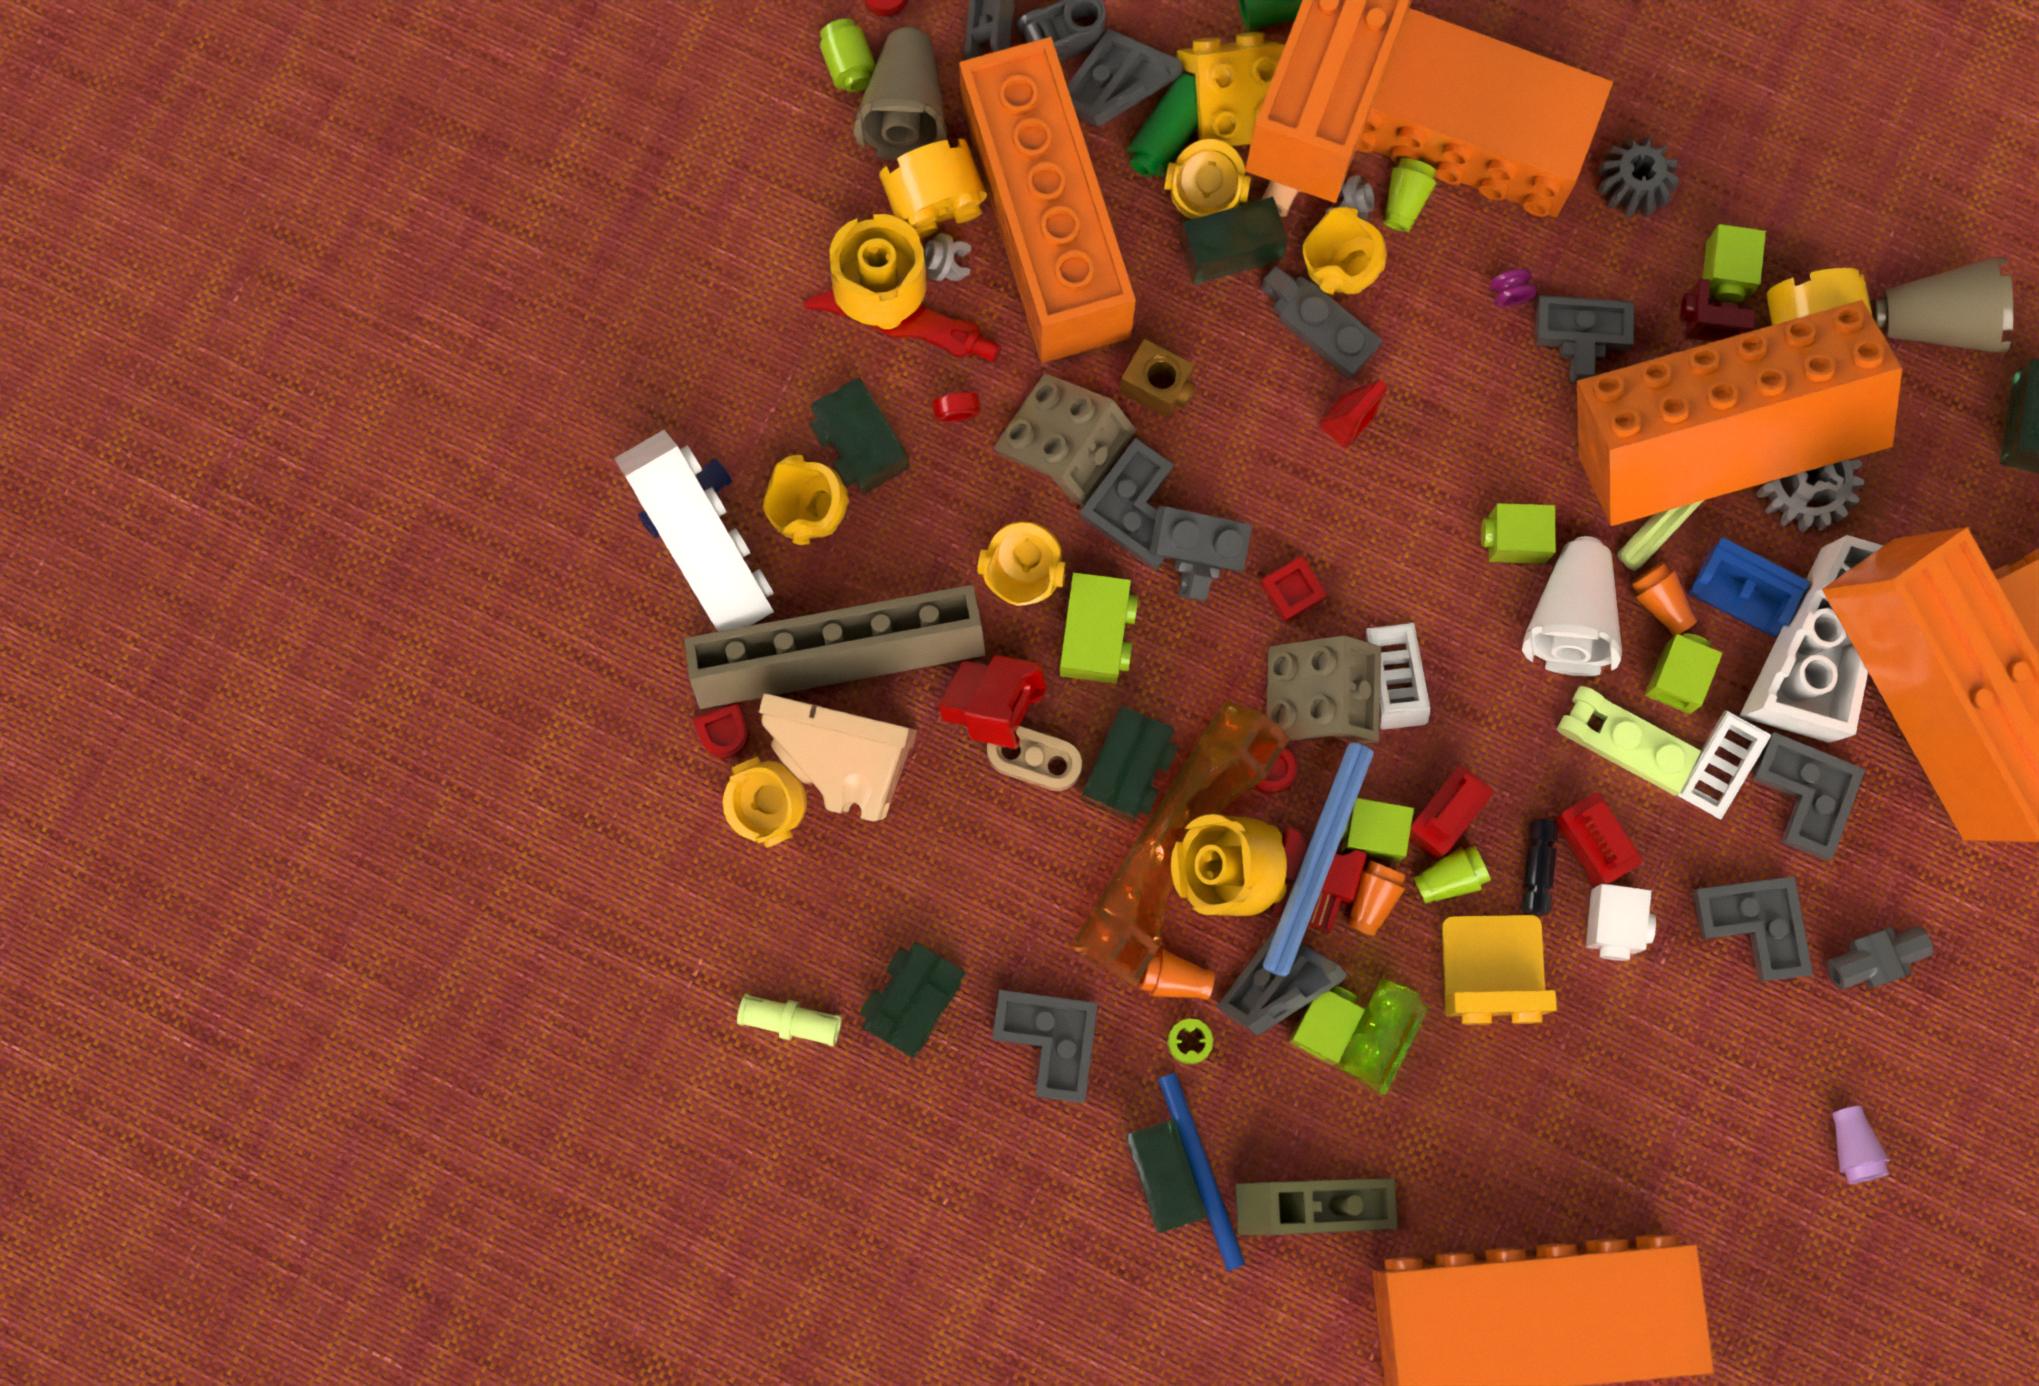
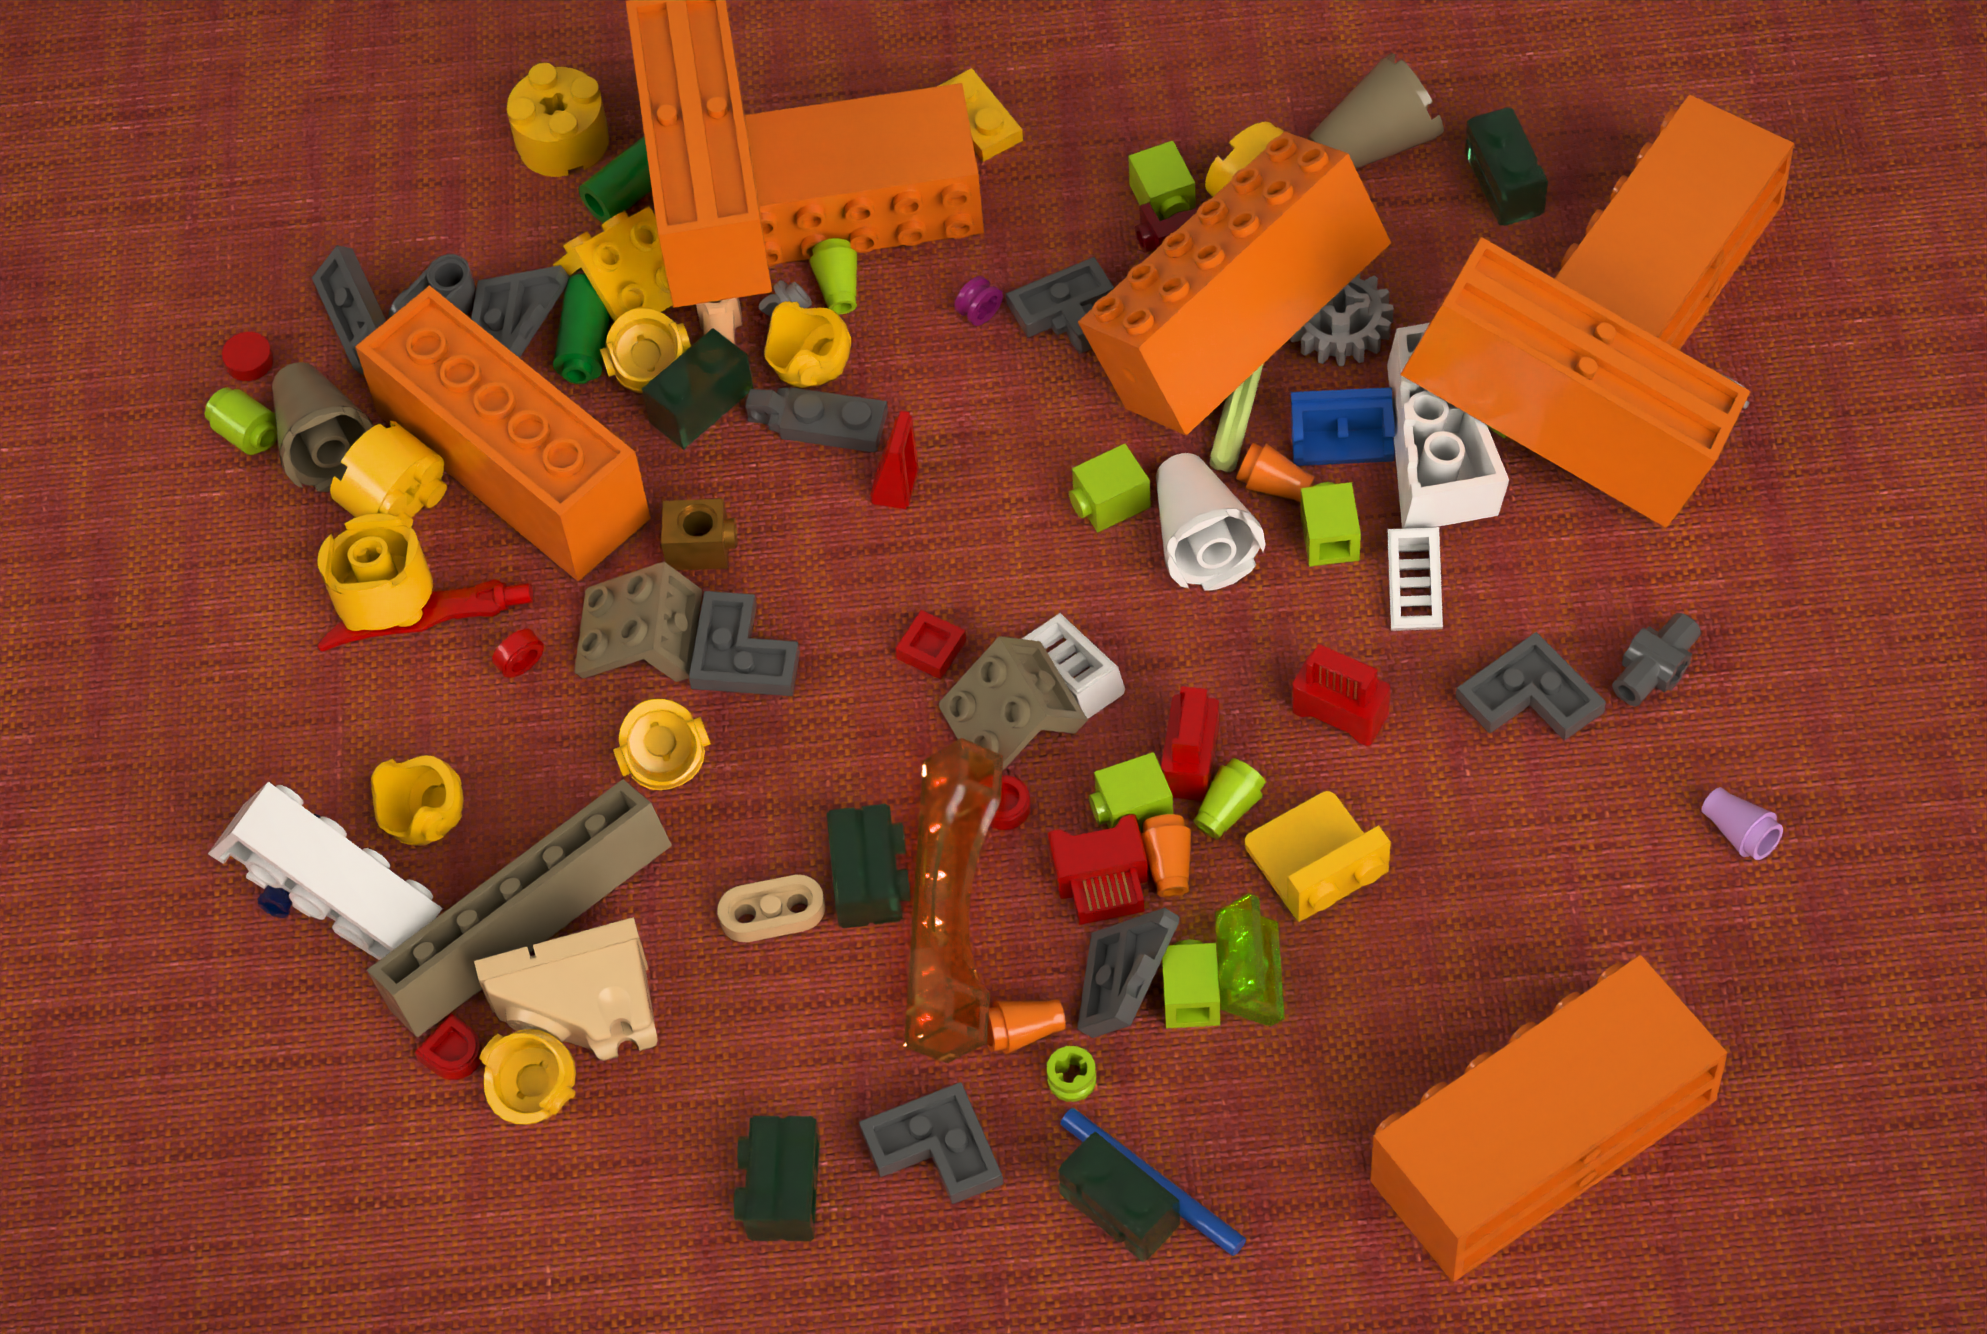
camera: 25 degrees left, 20 degrees down
(789, 1019) = (667, 1264): yellowish green pin -> none
(859, 436) = (438, 723): clear green brick -> none
(940, 258) = (433, 538): light grey plate -> none
(993, 698) = (701, 873): red piece -> none
(1096, 628) = (764, 768): lime brick -> none
(1199, 547) = (820, 646): dark grey hinge -> none
(1230, 865) = (1012, 888): yellow brick -> none
(1316, 1206) = (1275, 1146): olive slope -> none
(1318, 859) = (1092, 839): medium blue axle -> none
(1540, 867) = (1304, 750): black axle -> none
(1619, 921) = (1404, 752): white brick -> none
(1623, 108) = (990, 123): none -> yellow plate
(1629, 741) = (1317, 607): yellowish green plate -> none
(1645, 161) = (1034, 160): dark grey gear -> none
(1823, 792) = (1506, 547): dark grey plate -> none

